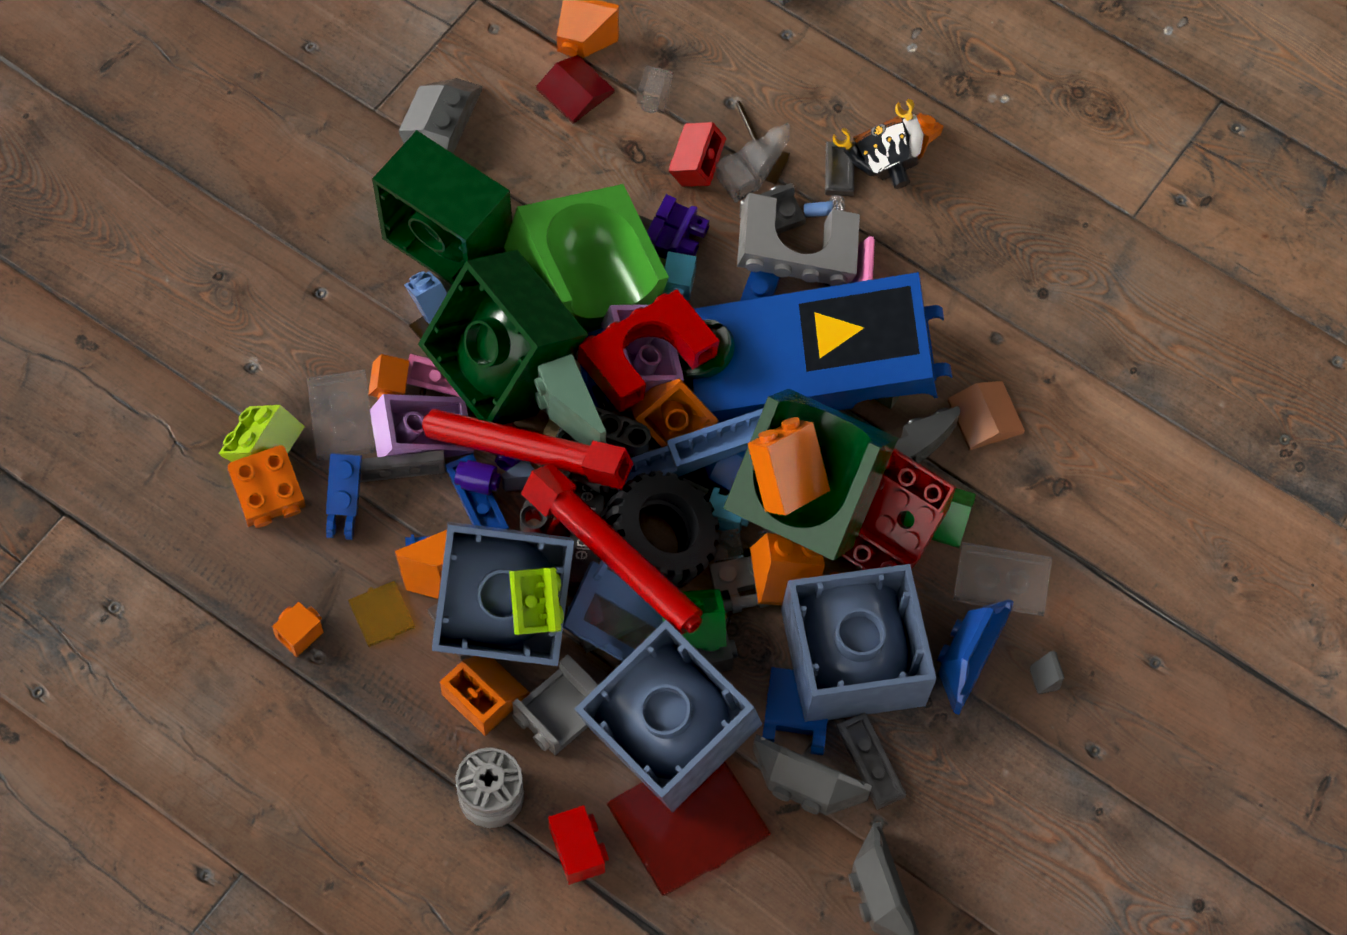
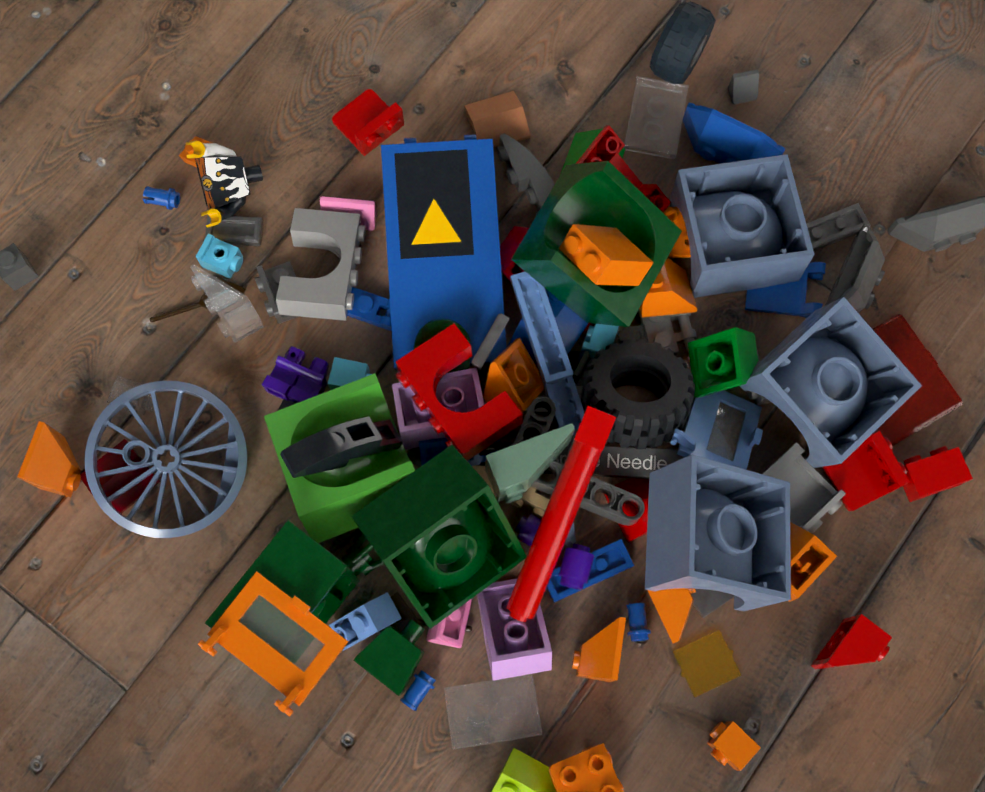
camera: 90 degrees left, 10 degrees up
(343, 492) = (588, 703): blue hinge -> none
(363, 347) = (418, 690): none -> blue pin
(388, 376) = (461, 661): orange brick -> none
(392, 506) = (601, 654): none -> orange slope
(392, 739) = (854, 643): none -> red slope
(393, 322) = (393, 656): none -> dark green torso
(398, 185) = (276, 640): none -> orange piece
(402, 466) = (554, 634): flat silver tile -> none
(441, 111) = (149, 619): dark grey wedge -> none
(494, 804) = (879, 563): light grey wheel -> none
(536, 600) = (747, 493): lime bracket -> none
(554, 495) = (622, 481): red brick -> none
(580, 129) = (233, 469): none -> sand blue piece
(580, 774) = (868, 473): none -> red bracket
(592, 244) = (339, 444): none -> black slope
(697, 154) = (214, 356): red brick -> none
(711, 389) = (489, 341): none -> flat silver tile
(807, 155) = (209, 257): none -> medium azure brick
(819, 209) = (278, 235): medium blue arm -> none
(870, 106) = (167, 198): none -> blue pin
(972, 284) = (368, 121): none -> red bracket
(1087, 591) = (682, 42): none -> black wheel

